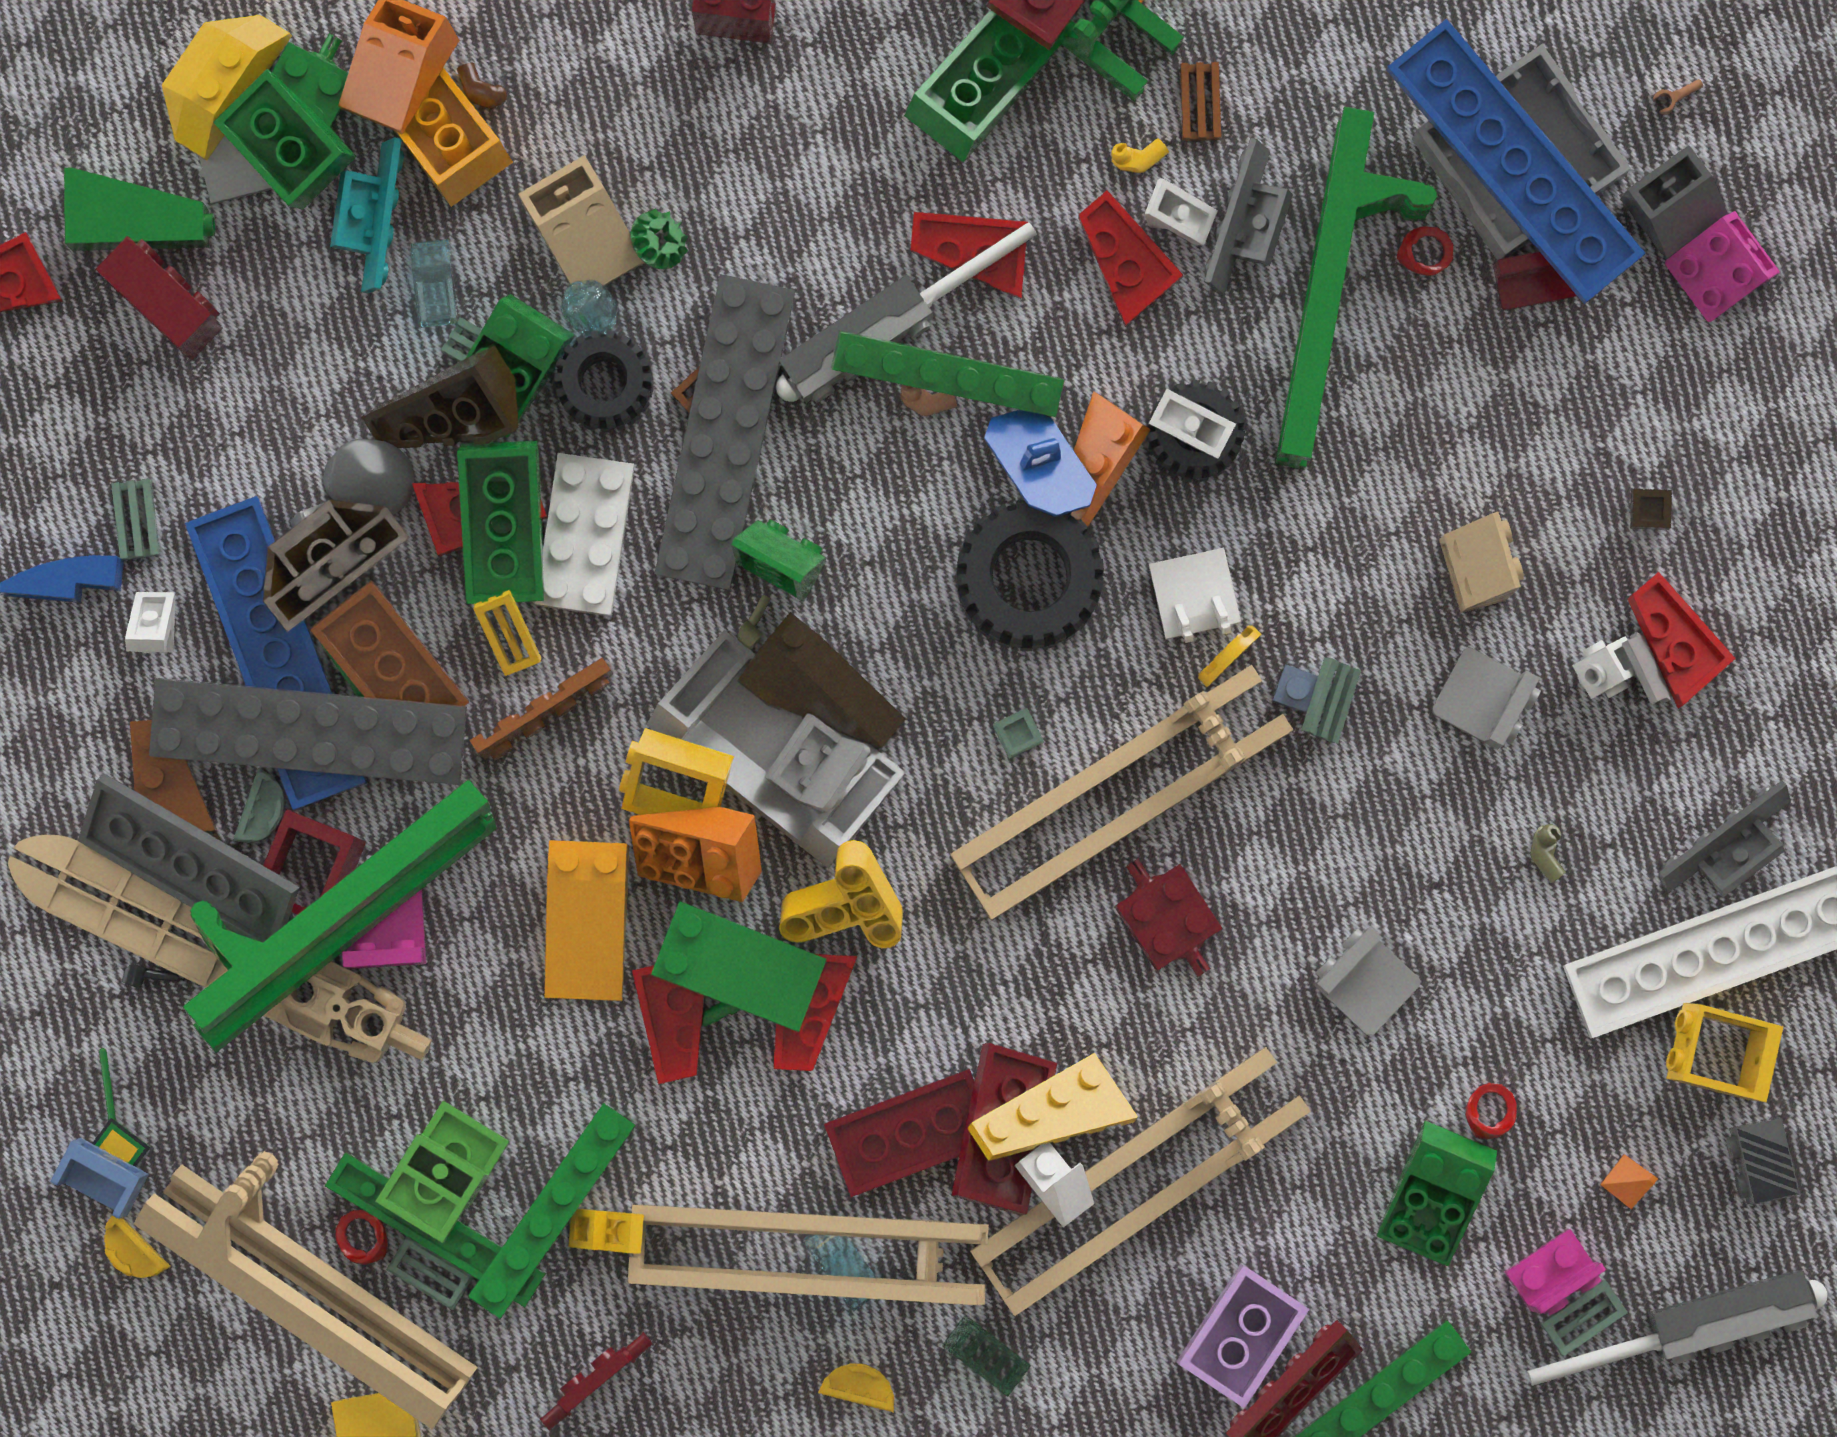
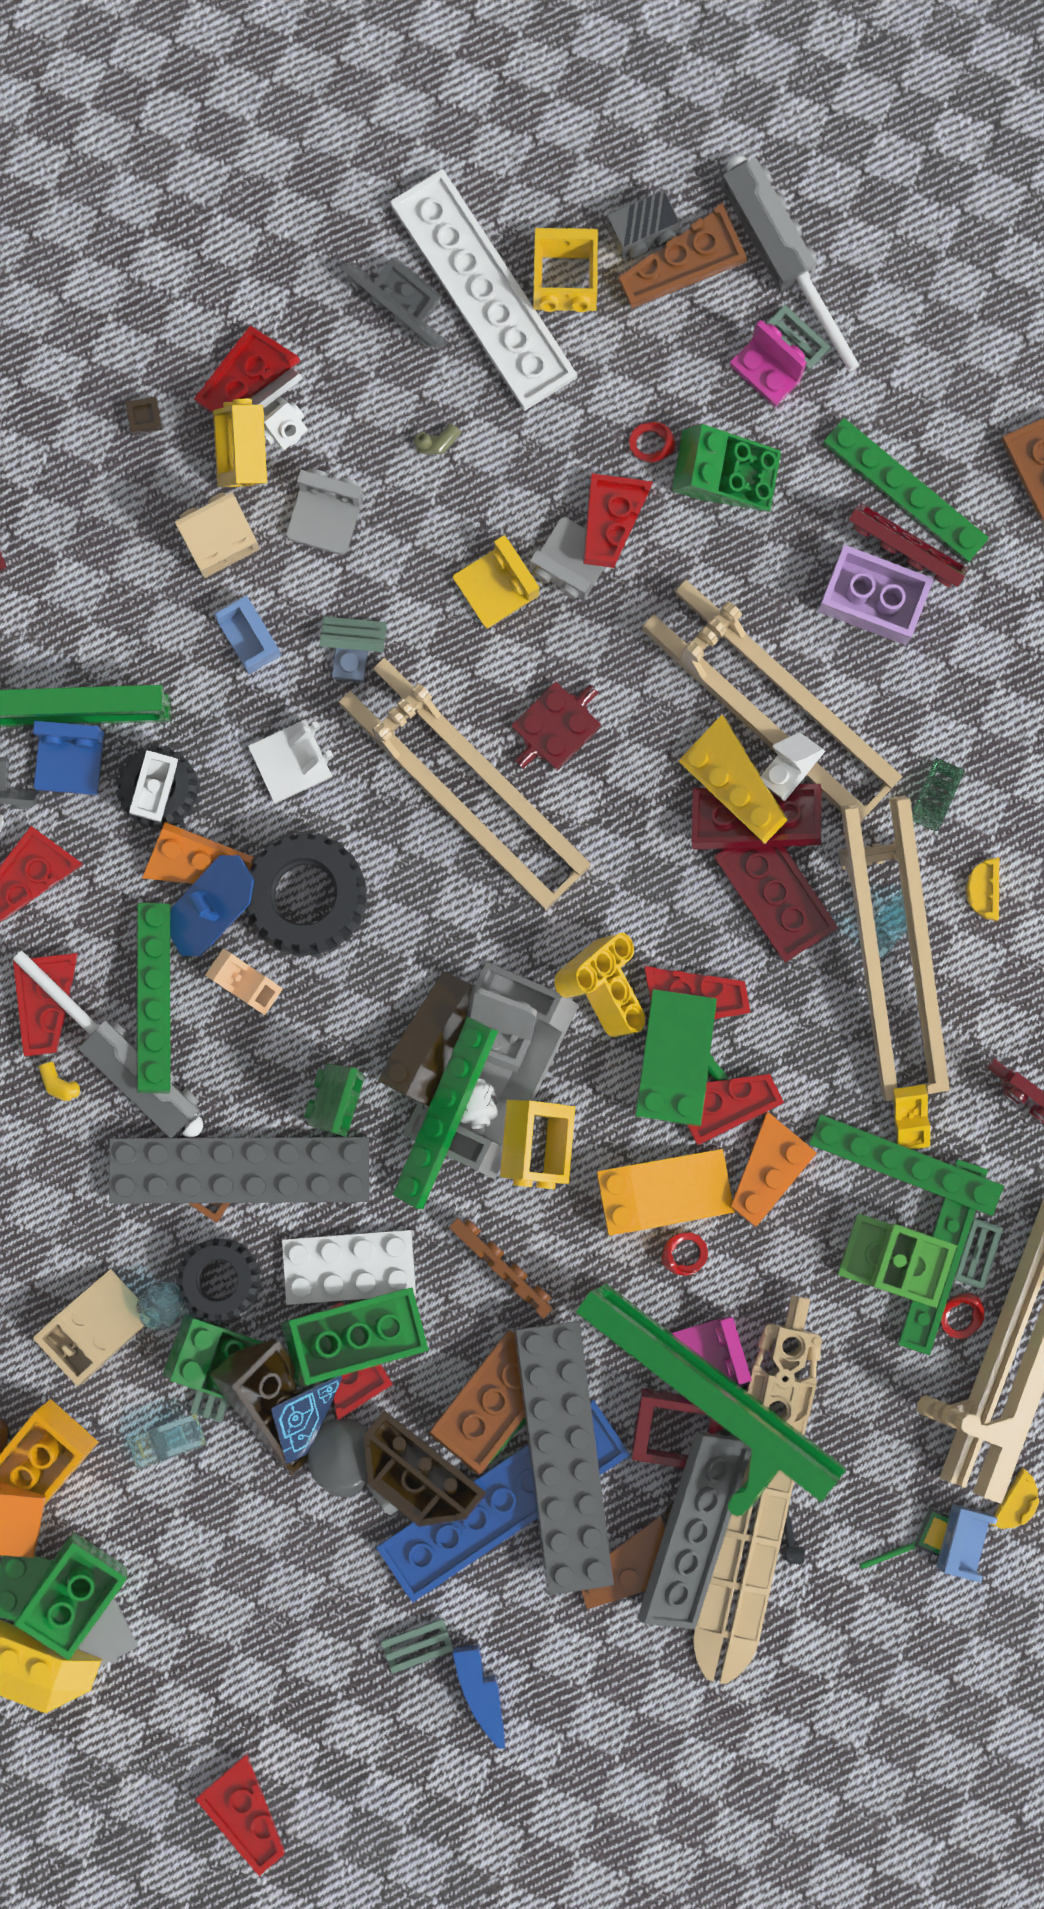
camera: 100 degrees left, 0 degrees up
(106, 210) = (163, 1718): green slope -> none
(151, 623) = (501, 1610): white slope -> none
(161, 296) = (225, 1669): dark red brick -> none
(262, 810) = (634, 1480): sand green tile -> none
(365, 214) = (119, 1512): teal bracket -> none
(423, 441) = (301, 1418): none -> dark blue sticker
(491, 920) = (667, 1257): none -> red piece
(494, 603) = (424, 1326): yellow tile -> none
(583, 1050) = (770, 1170): none -> orange wing
(647, 245) = (97, 1269): green gear -> none
(698, 850) = (589, 1111): orange slope -> none
(735, 682) = (445, 1113): none -> green plate
(738, 721) = (481, 1106): none -> white head
(748, 633) = (401, 1113): olive hand -> none
(870, 242) = (55, 1086): none -> yellow arm
(926, 403) = (180, 1013): nougat arm -> none
(943, 482) = (243, 981): none -> light nougat brick
(1018, 733) = (434, 878): sand green tile -> none
(1229, 655) = (334, 723): yellow tile -> none
(1253, 334) = (68, 757): none -> blue bracket
(1354, 883) = (497, 583): none -> yellow bracket
(1357, 576) = (247, 634): none -> medium blue panel
(1407, 1039) = (611, 514): none -> red wing
(1585, 612) = (240, 444): none -> yellow window
(1628, 1181) = (682, 325): orange slope -> none
(1711, 1214) = (693, 256): none -> dark orange wing

